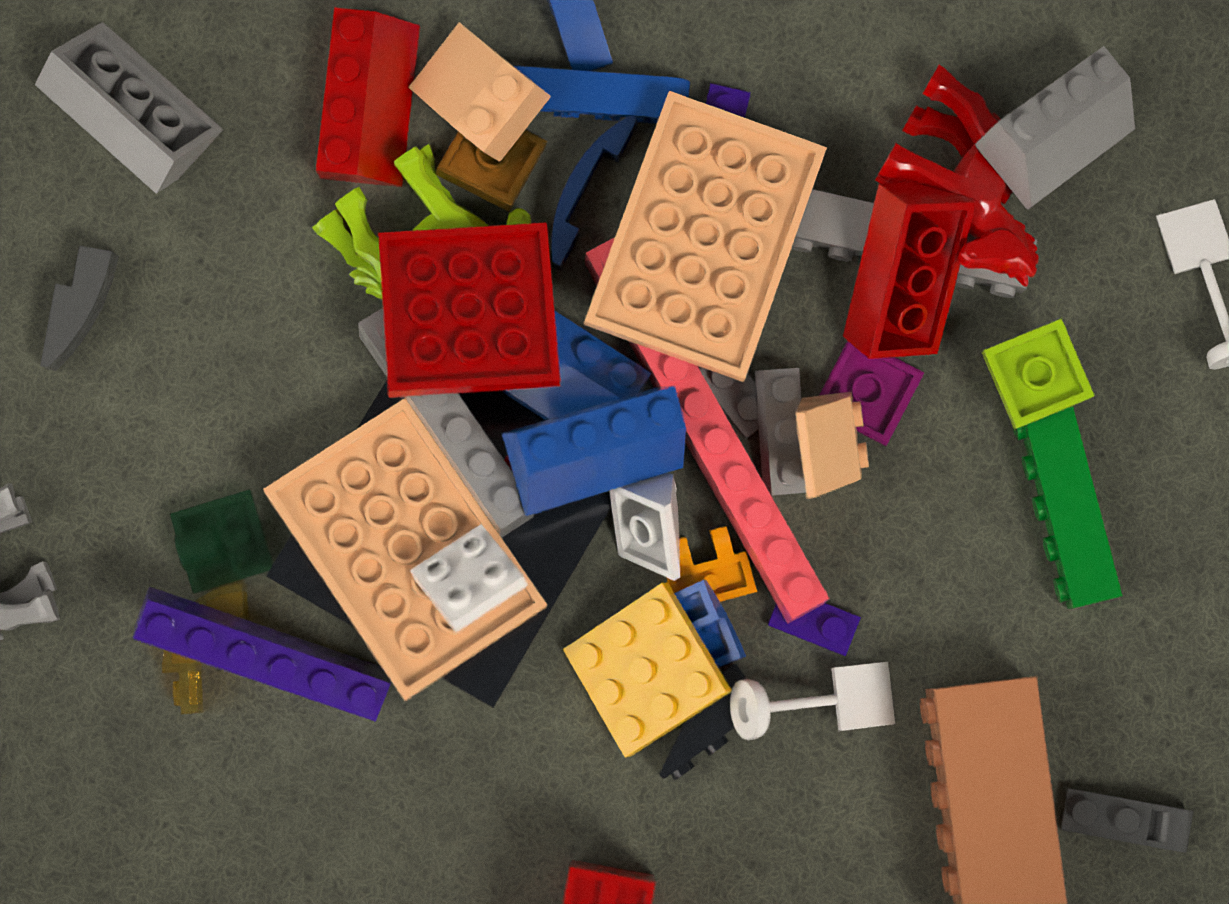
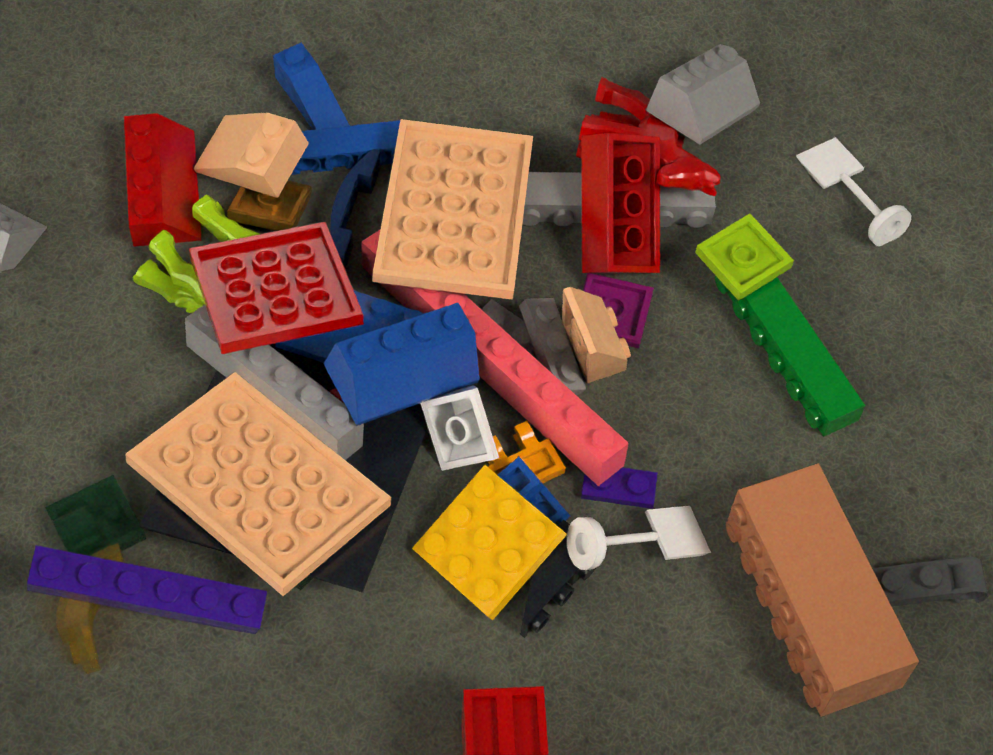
camera: 20 degrees left, 25 degrees down
(468, 578) = (318, 477): white plate -> none

